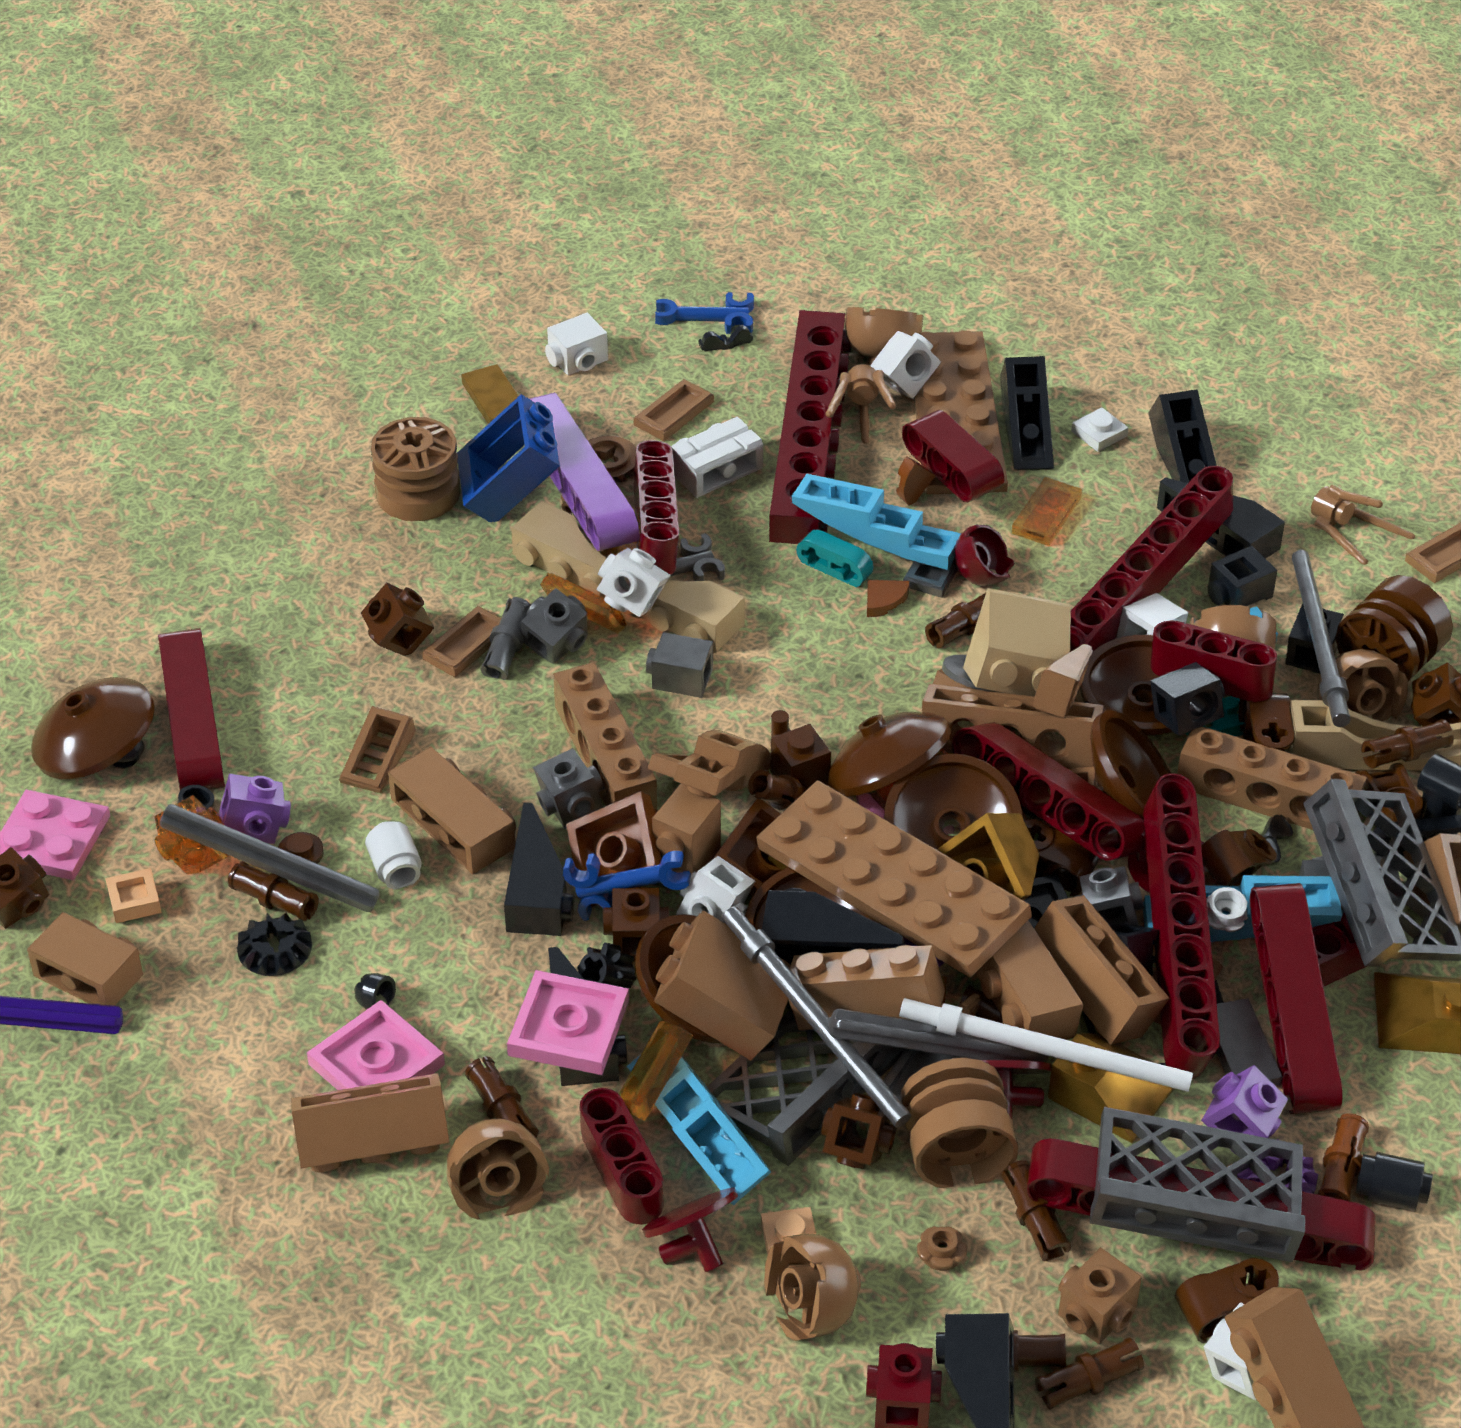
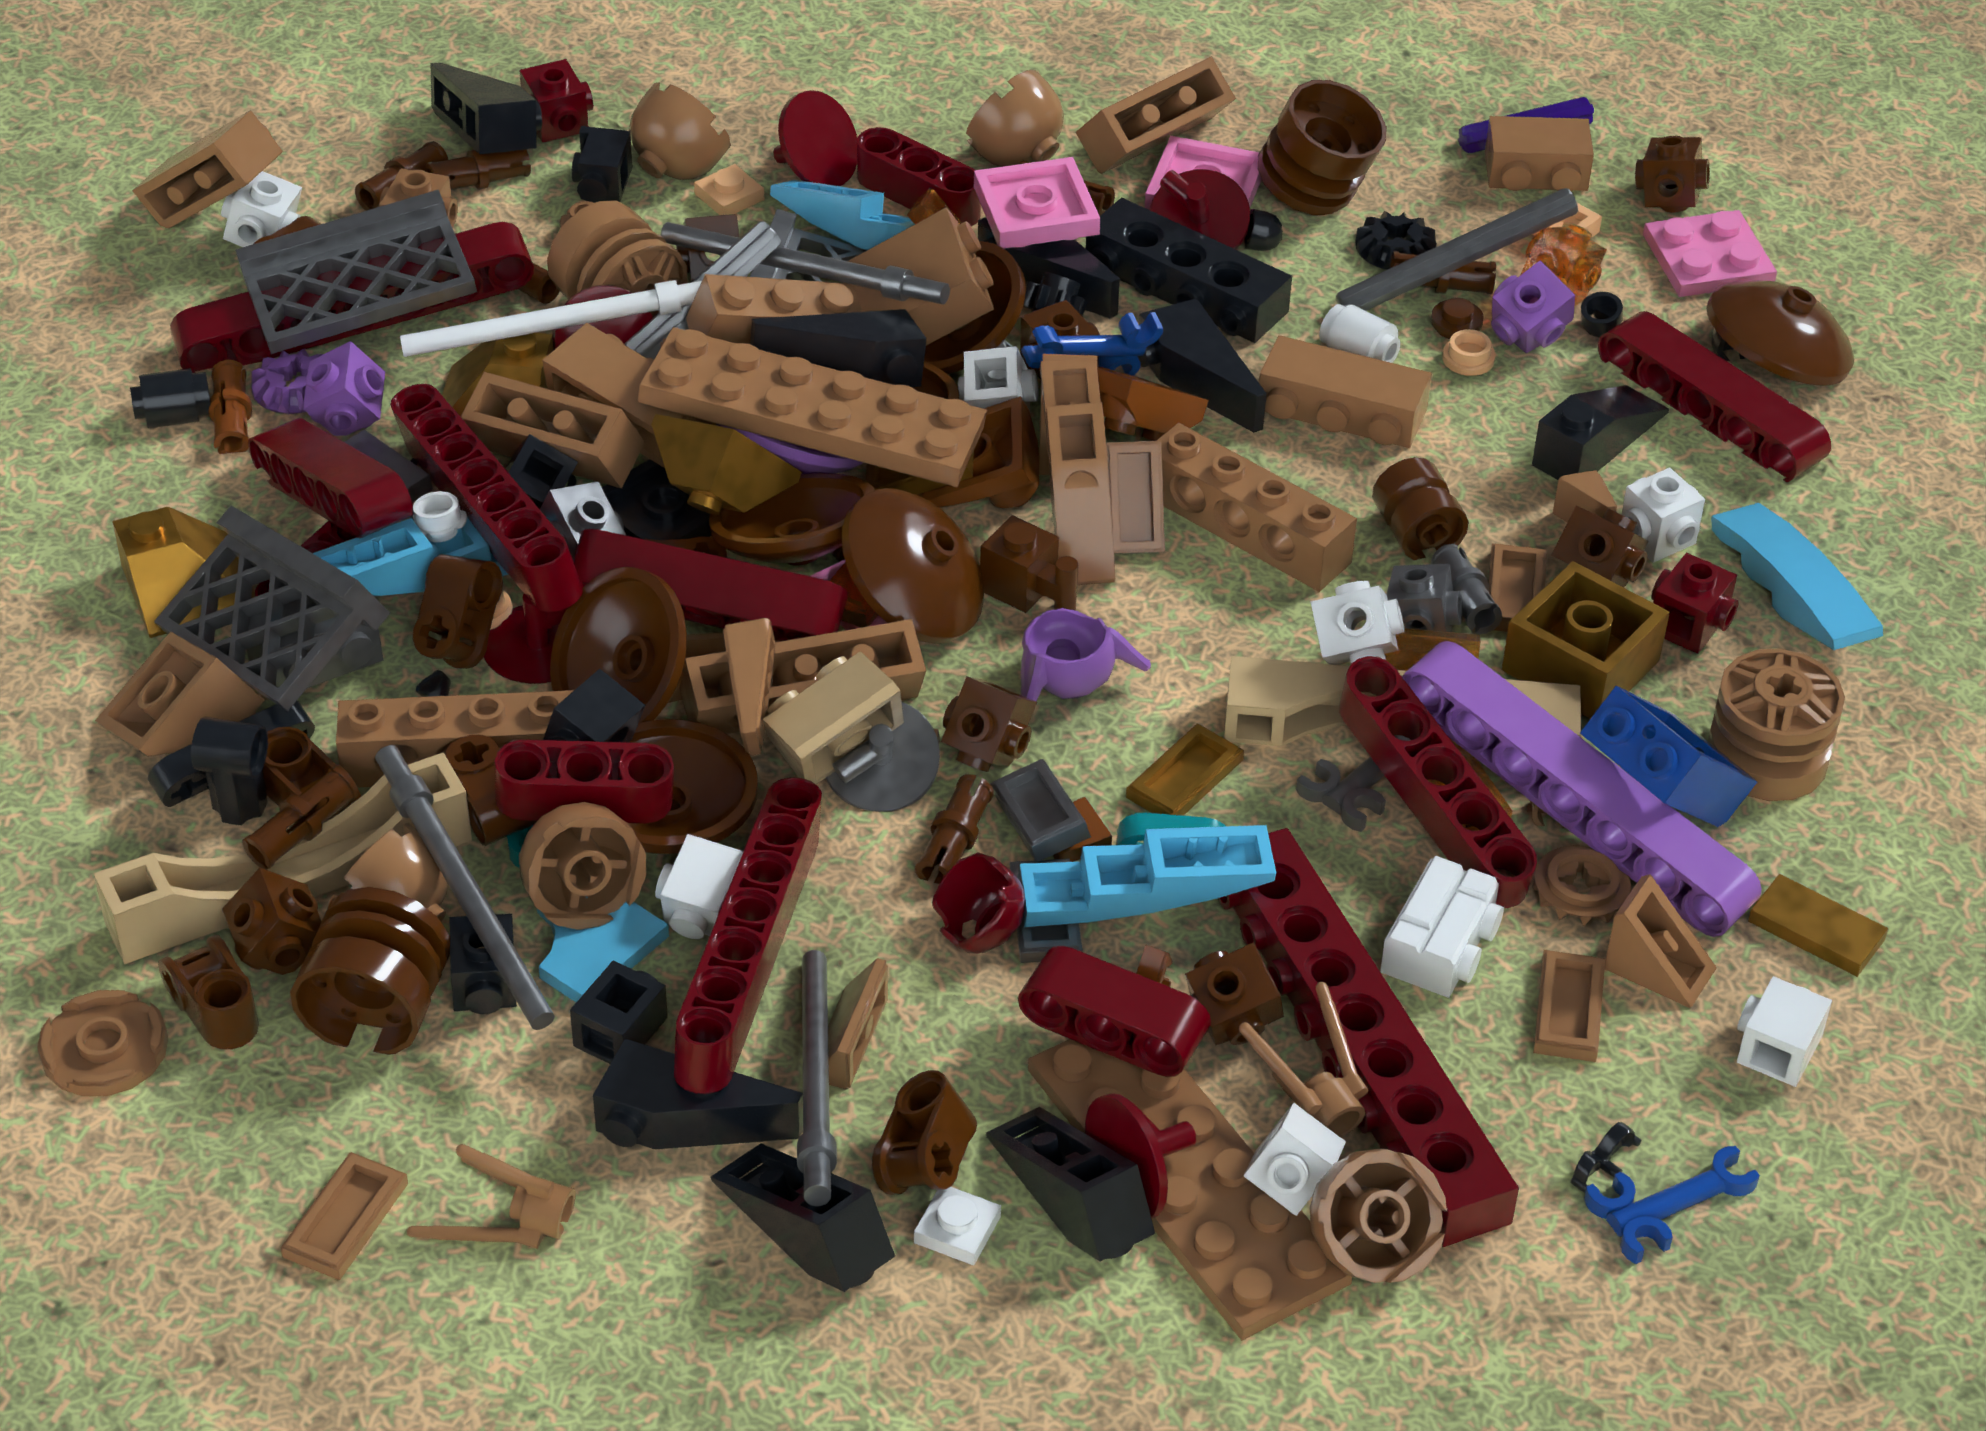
camera: 150 degrees right, 0 degrees up
(276, 1001) = (1321, 147): none -> reddish brown wheel
(286, 566) = (1801, 578): none -> medium azure slope
(300, 712) = (1592, 429): none -> black slope
(322, 817) = (1469, 353): none -> light nougat plate
(331, 622) = (1665, 512): none -> white brick
(366, 661) = (1585, 491): none -> medium nougat slope
(374, 562) = (1697, 591): none -> dark red brick
(385, 722) = (1491, 454): medium nougat slope -> none
(418, 1011) = (1205, 203): none -> dark red shield
(471, 961) = (1183, 265): none -> black brick
(474, 561) = (1586, 636): none -> pearl gold brick
(487, 693) = (1419, 507): none -> reddish brown wheel
(568, 787) = (1246, 431): flat silver brick -> none
(608, 407) = (1657, 947): none -> medium nougat slope
(680, 664) = (1242, 626): flat silver brick -> none
(780, 790) = (1006, 493): reddish brown pin -> none
(789, 607) = (1185, 772): none -> pearl gold tile
(815, 679) = (1071, 654): none -> medium lavender piece
(872, 455) = (1235, 991): none -> reddish brown brick
(895, 1293) = (602, 164): none -> black brick
(903, 605) = (1040, 810): none -> flat silver tile
(903, 654) = (988, 724): none -> reddish brown brick
(978, 396) = (1132, 1134): none -> dark red shield
(1046, 511) = (952, 1040): clear orange tile -> none
(1095, 455) = (923, 1136): none -> reddish brown piece
(1102, 532) = (856, 1022): none -> medium nougat slope
(1173, 436) = (816, 1145): none -> flat silver bar

